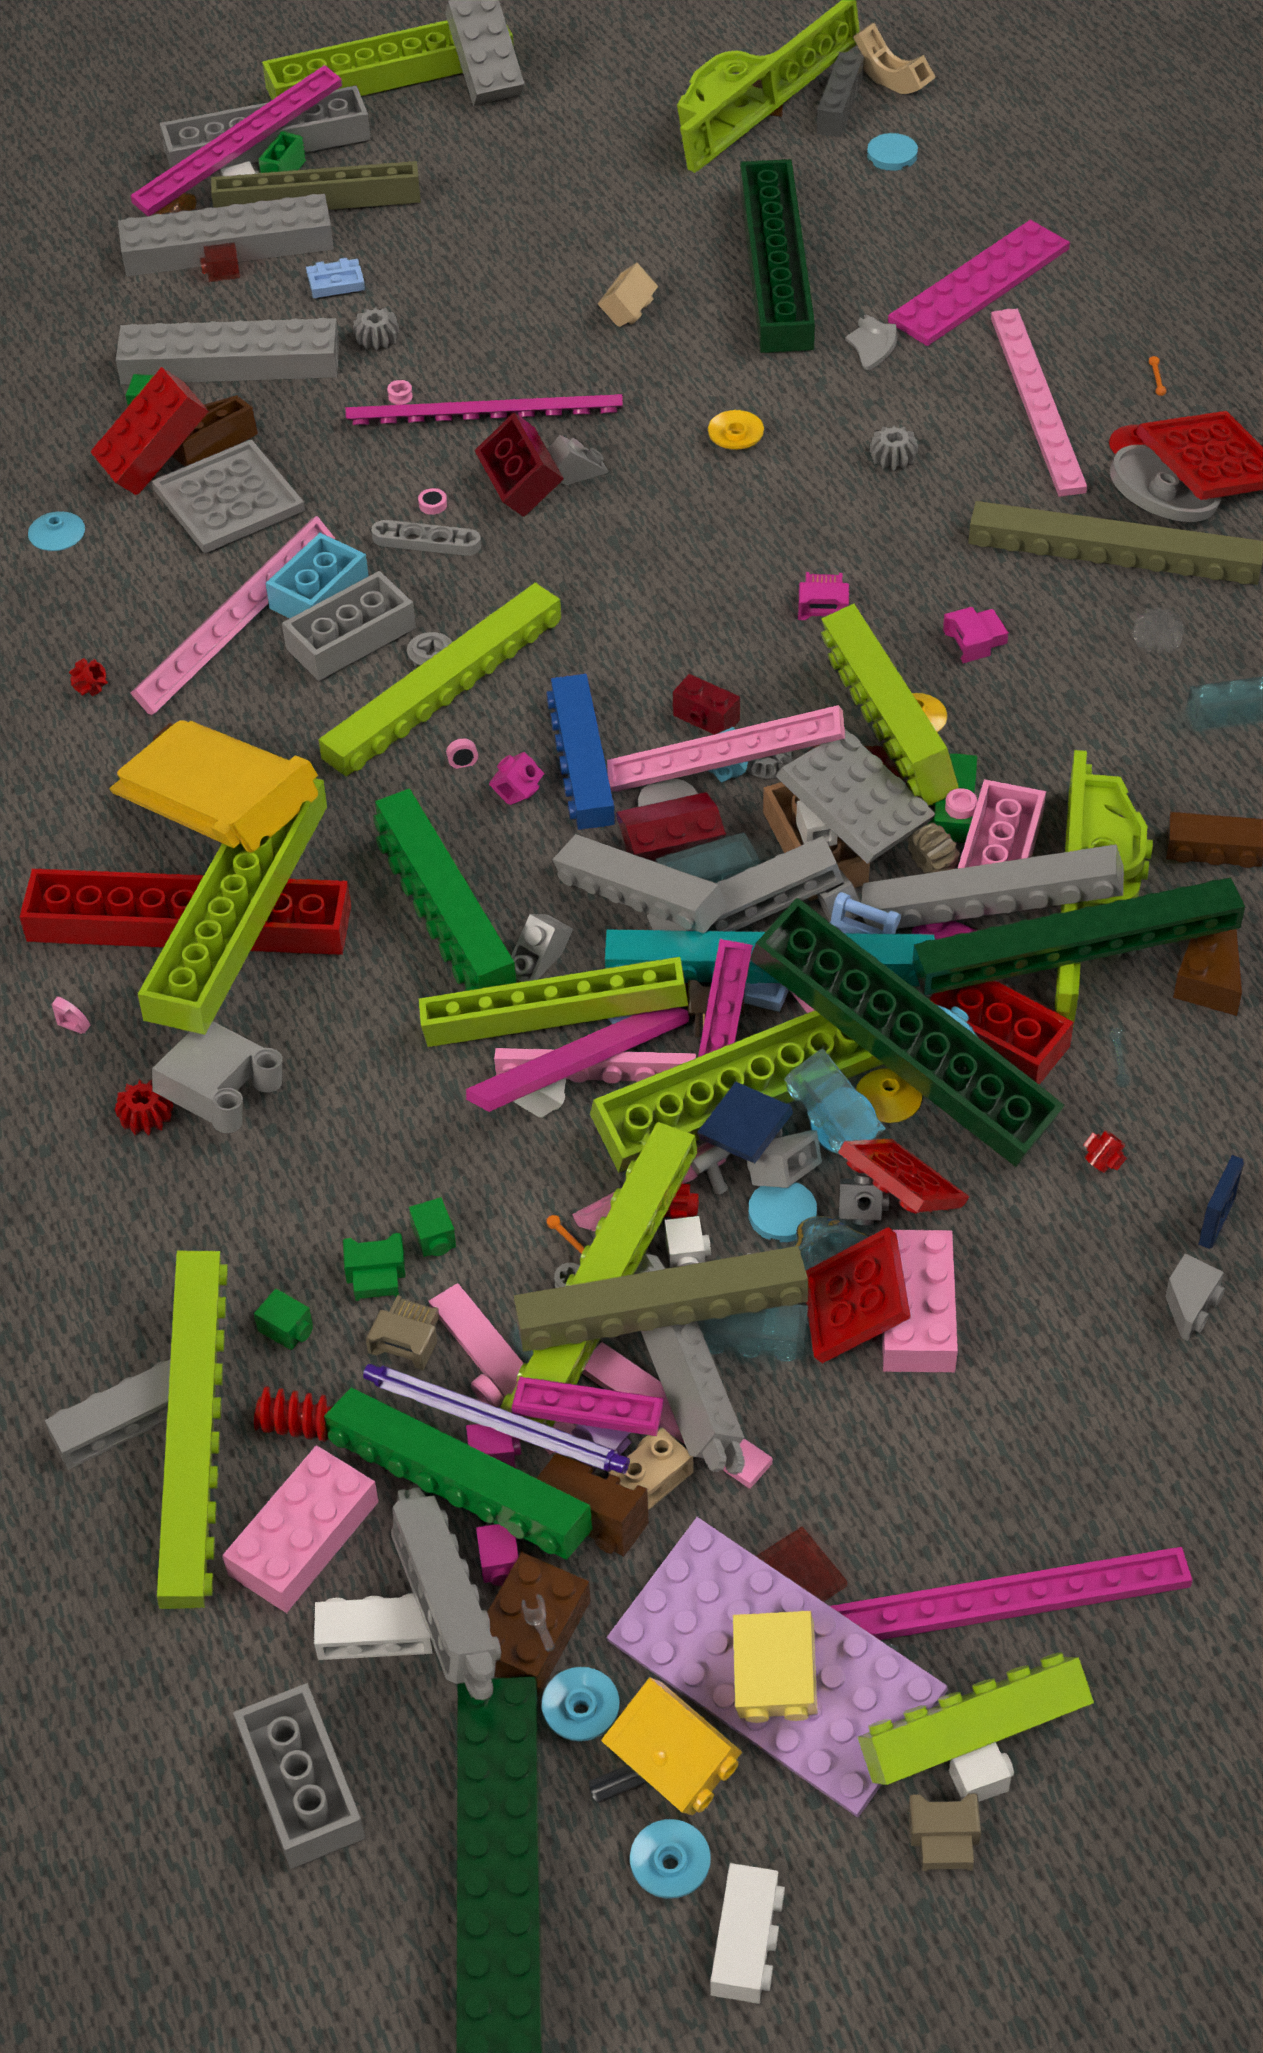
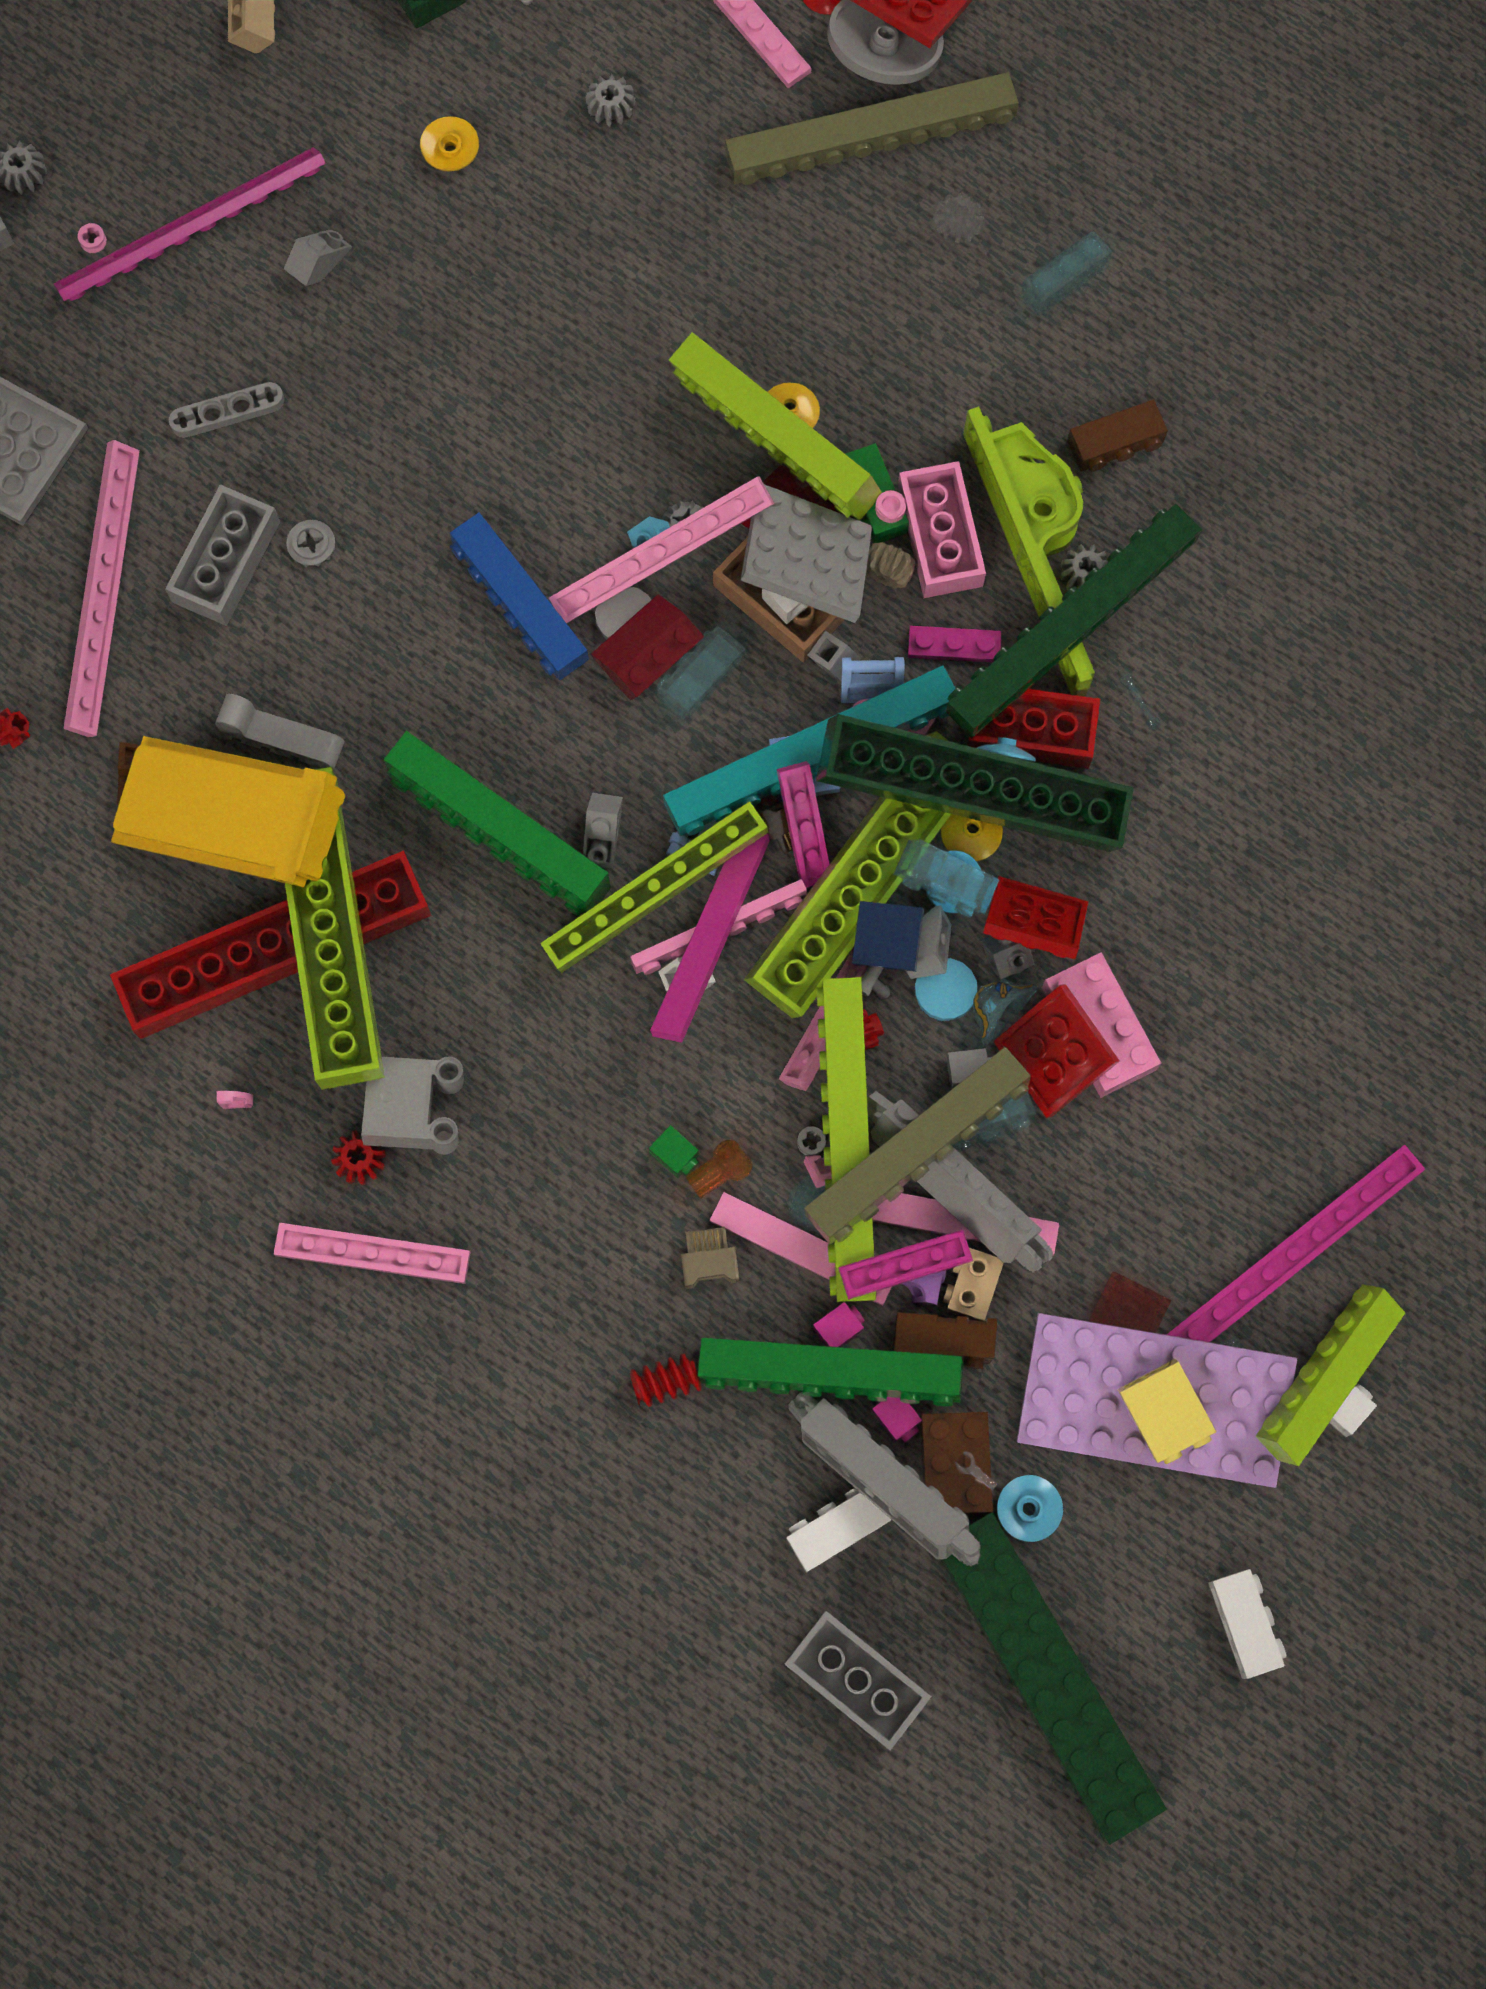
camera: 30 degrees left, 25 degrees up
(102, 1189) = (372, 1253): none -> bright pink plate
(111, 1416) = (525, 1448): light grey brick -> none
(191, 1432) = (598, 1441): lime brick -> none
(278, 736) = (280, 735): none -> light grey beam
(284, 1319) = (605, 1299): green brick -> none
(301, 1528) = (732, 1476): bright pink brick -> none
(314, 575) = (160, 515): medium azure brick -> none
(374, 1266) = (648, 1213): green piece -> none
(432, 501) = (205, 361): bright pink tile -> none
(439, 680) = (343, 574): lime brick -> none
(462, 753) = (411, 650): bright pink tile -> none
(474, 1257) = (727, 1163): none -> clear orange piece
(486, 1391) = (806, 1280): bright pink tile -> none
(497, 1418) = (835, 1309): piece -> none
(516, 778) = (480, 657): dark pink brick -> none
(519, 464) = (273, 289): dark red brick -> none
(554, 1223) = (765, 1092): orange hinge -> none
(640, 883) = (661, 729): light grey brick -> none
(668, 1749) = (1121, 1517): yellow piece -> none
(670, 1840) = (1179, 1590): medium azure dish -> none
(685, 1241) = (890, 1065): white brick -> none
(705, 705) = (603, 494): dark red brick -> none
(771, 886) = (761, 698): light grey brick -> none
(822, 595) = (639, 313): dark pink piece -> none
(945, 1831) = (1346, 1469): dark tan piece -> none
(975, 632) = (798, 293): dark pink piece -> none
(999, 887) = (972, 594): light grey brick -> none
(1105, 1151) = (1177, 807): red gear -> none
(1191, 1292) = (1307, 910): light grey slope -> none
(1211, 973) = (1182, 587): reddish brown wedge -> none
(1221, 1202) = (1296, 816): dark blue tile -> none

